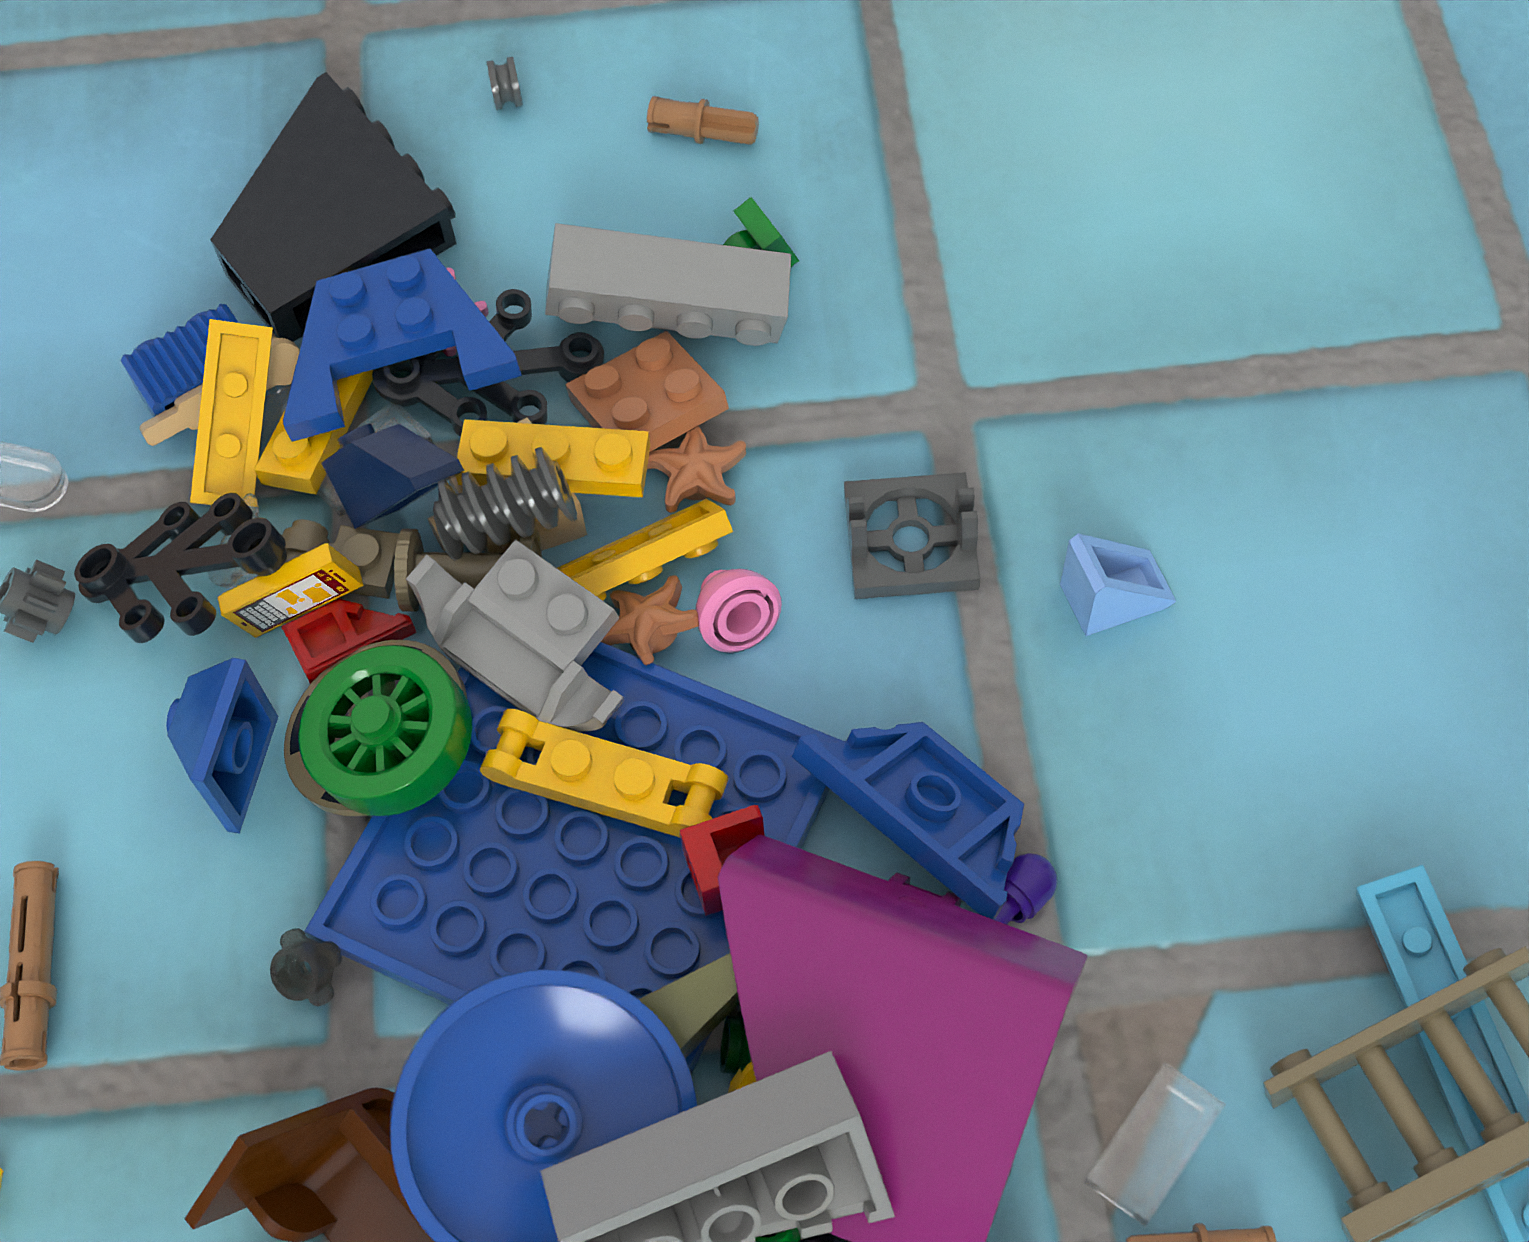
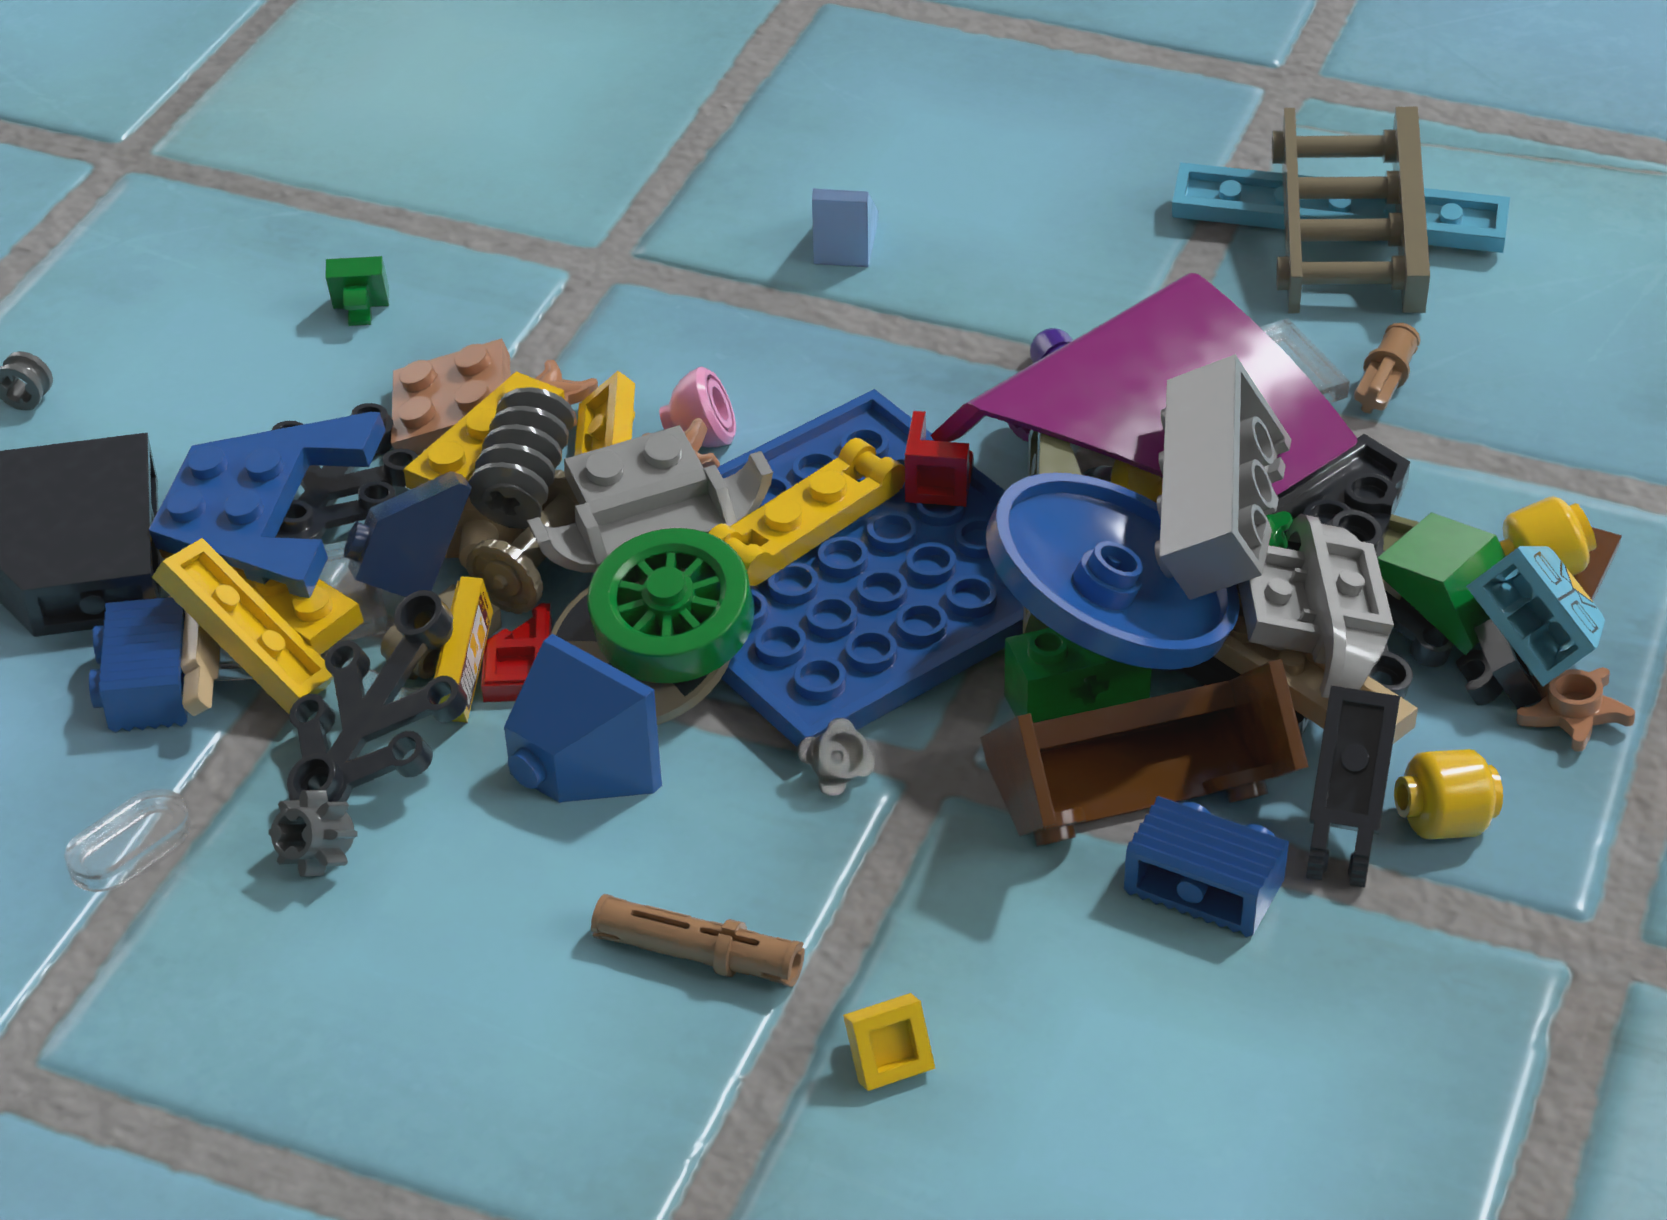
camera: 65 degrees left, 20 degrees down
(667, 284) = (357, 340): light grey wedge -> none
(701, 121) = (191, 287): medium nougat axle -> none
(877, 580) = (691, 326): dark grey piece -> none
(926, 803) = (950, 361): blue wing -> none

